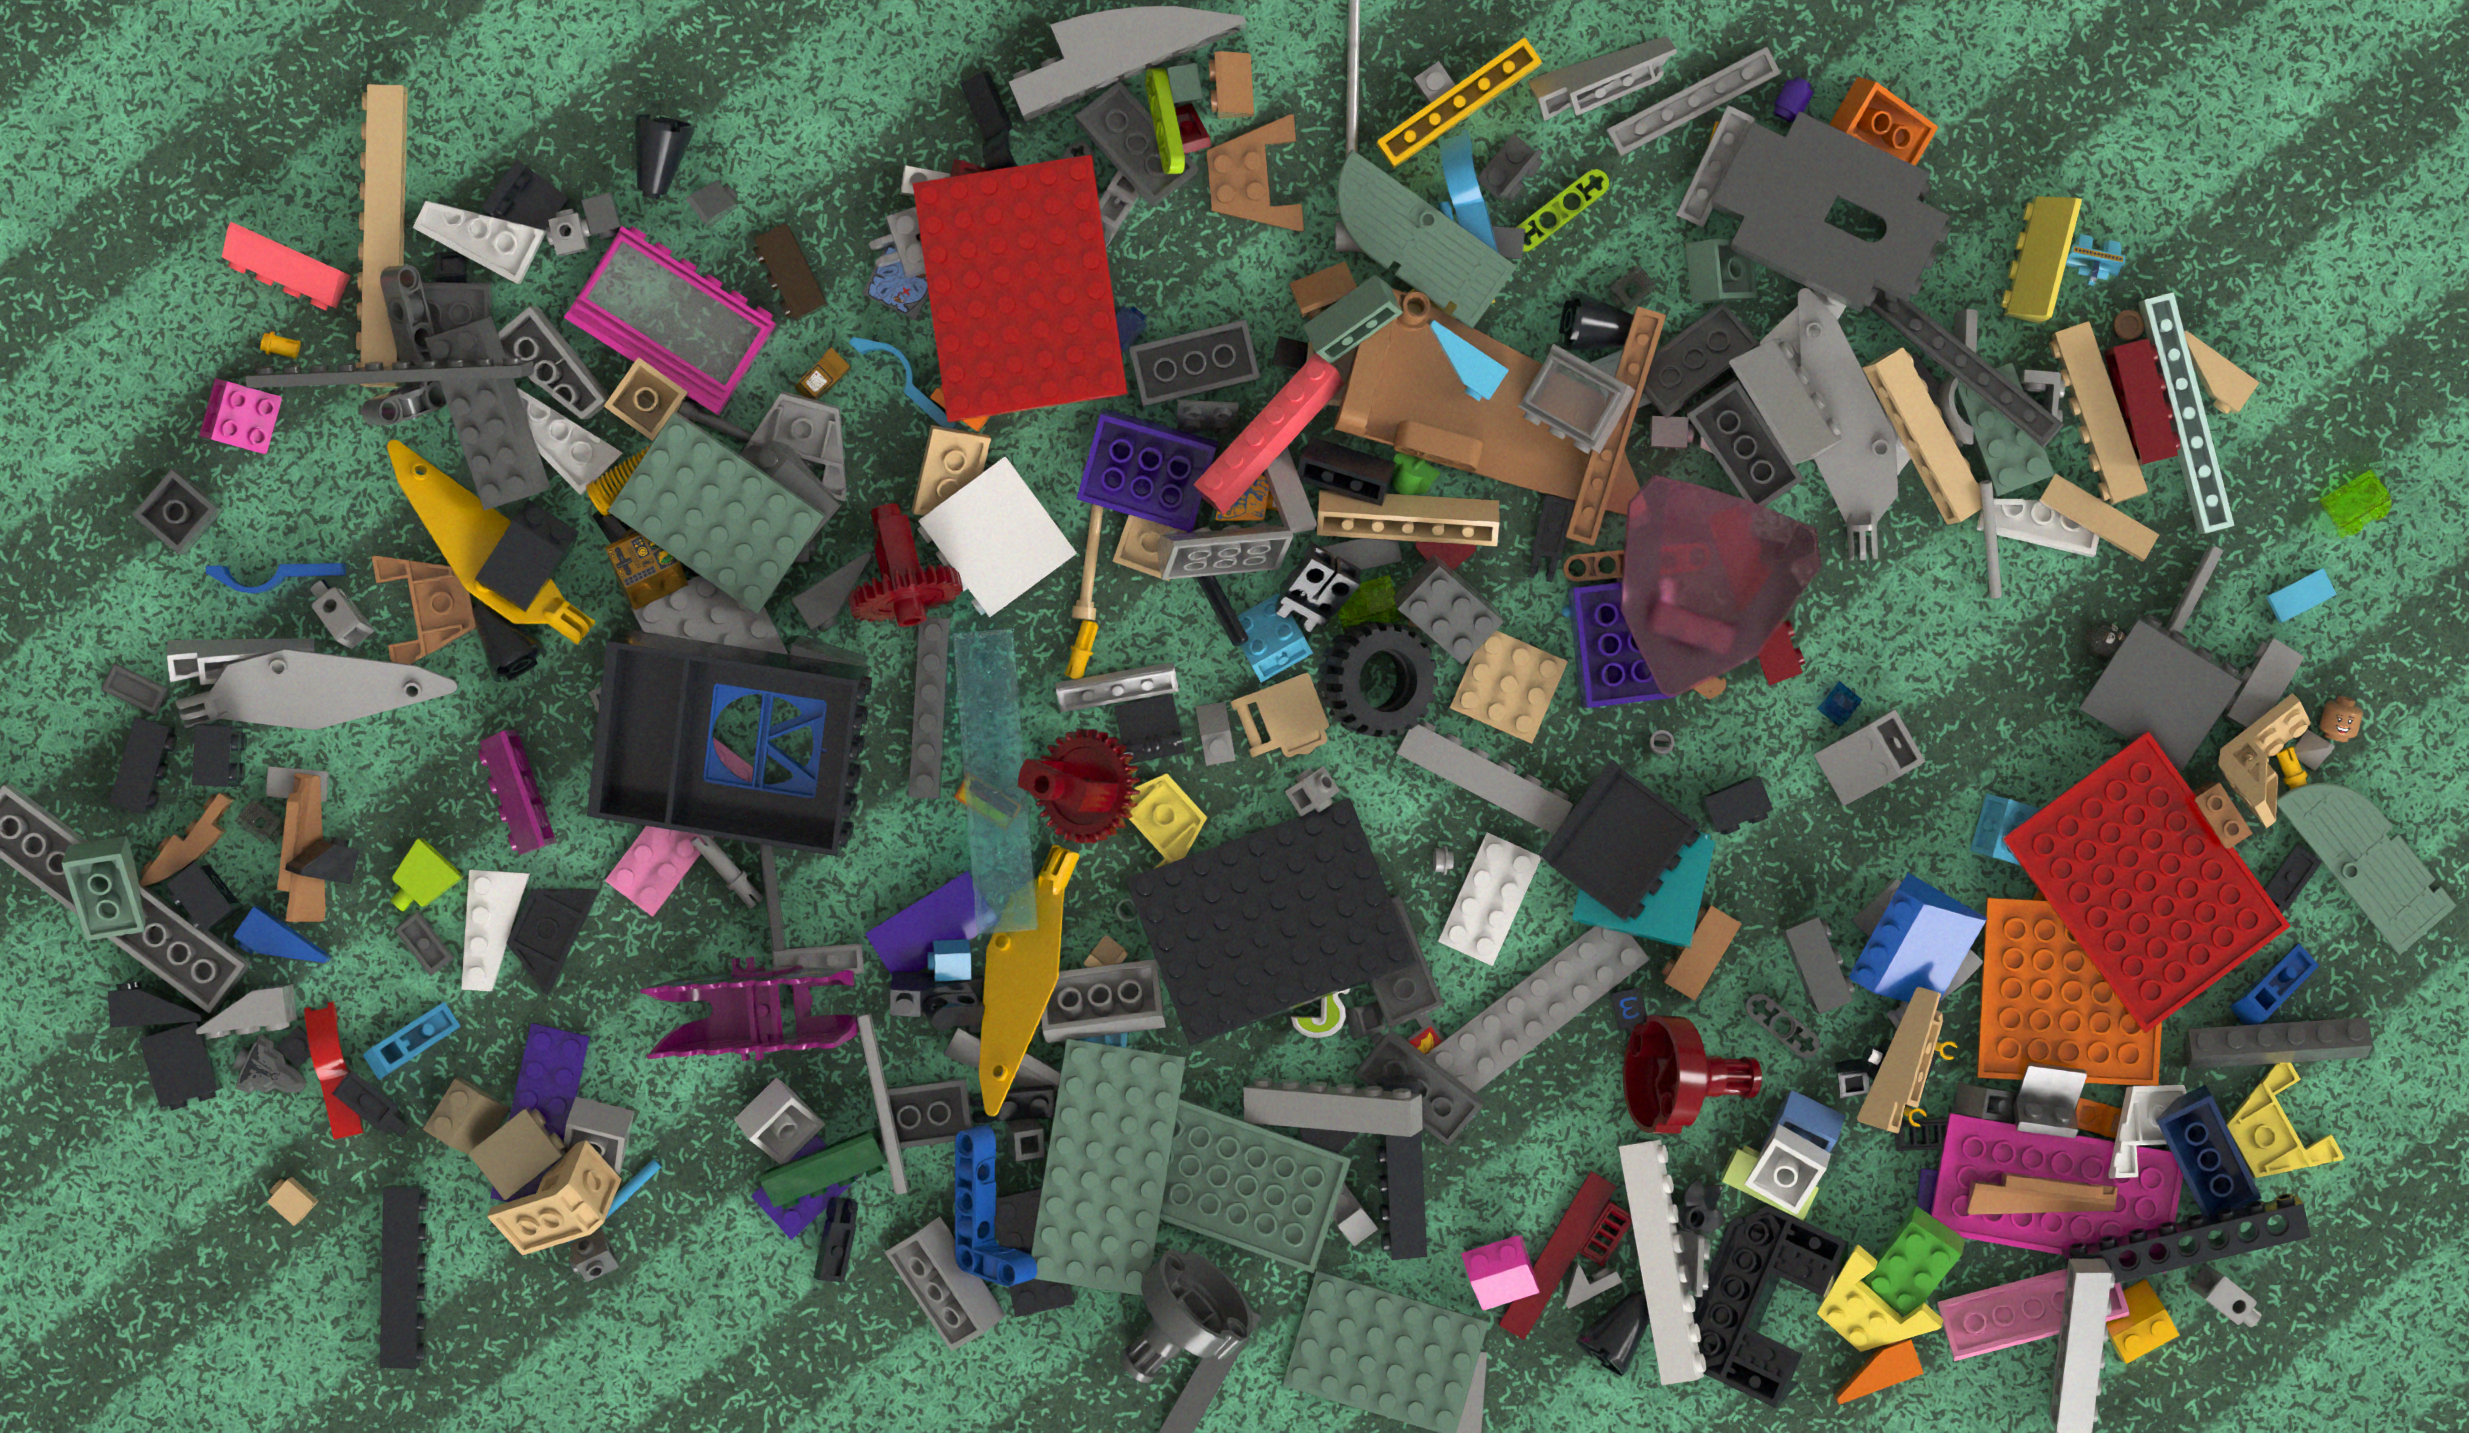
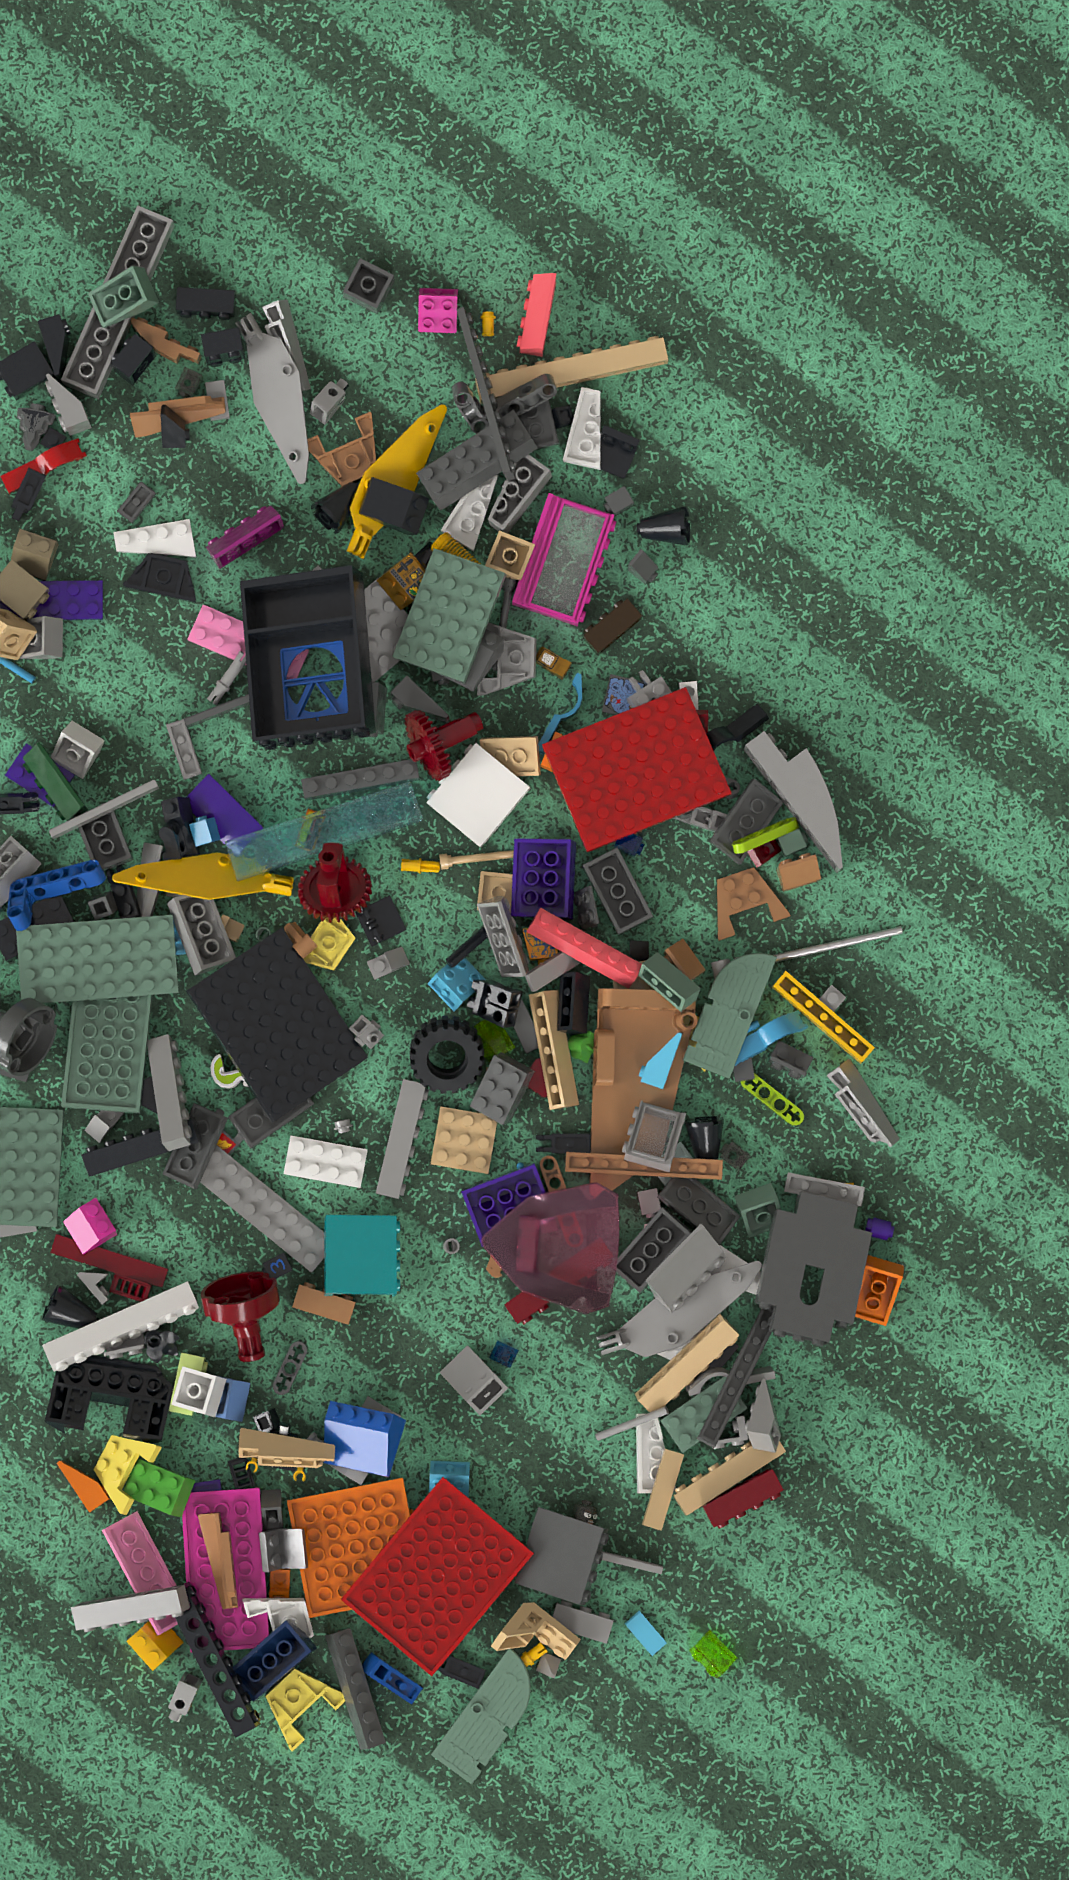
camera: 75 degrees right, 5 degrees down
(135, 689) = (252, 286): dark grey tile -> none
(271, 936) = (117, 406): blue slope -> none
(284, 570) = (336, 323): blue piece -> none
(411, 1040) = (73, 508): dark azure slope -> none
(423, 876) = (178, 491): lime torso -> none
(578, 238) = (602, 490): light grey brick -> none
(749, 1012) = (142, 712): magenta animal -> none
(1117, 687) = (402, 893): light grey tile -> none
(1153, 855) = (301, 942): none -> medium nougat piece
(1290, 717) = (411, 1006): tan piece -> none
(1365, 1020) = (229, 1101): dark grey slope -> none
(1620, 842) = (381, 1233): black panel -> none
(1693, 101) = (862, 1166): light grey plate -> none
(1736, 804) = (423, 1302): black brick -> none
(1817, 963) = (334, 1379): dark grey brick -> none
(2041, 258) = (817, 1409): light yellow slope -> none
(2046, 344) = (763, 1423): none -> light grey slope
(2095, 262) = (824, 1446): medium azure hips -> none
(2128, 325) = (790, 1479): medium nougat tile -> none
(2189, 420) = (743, 1528): light aqua brick -> none
(2220, 377) = (771, 1546): tan slope -> none
(2221, 813) = (491, 1612): medium nougat panel -> none
(2341, 719) = (572, 1678): medium nougat head -> none

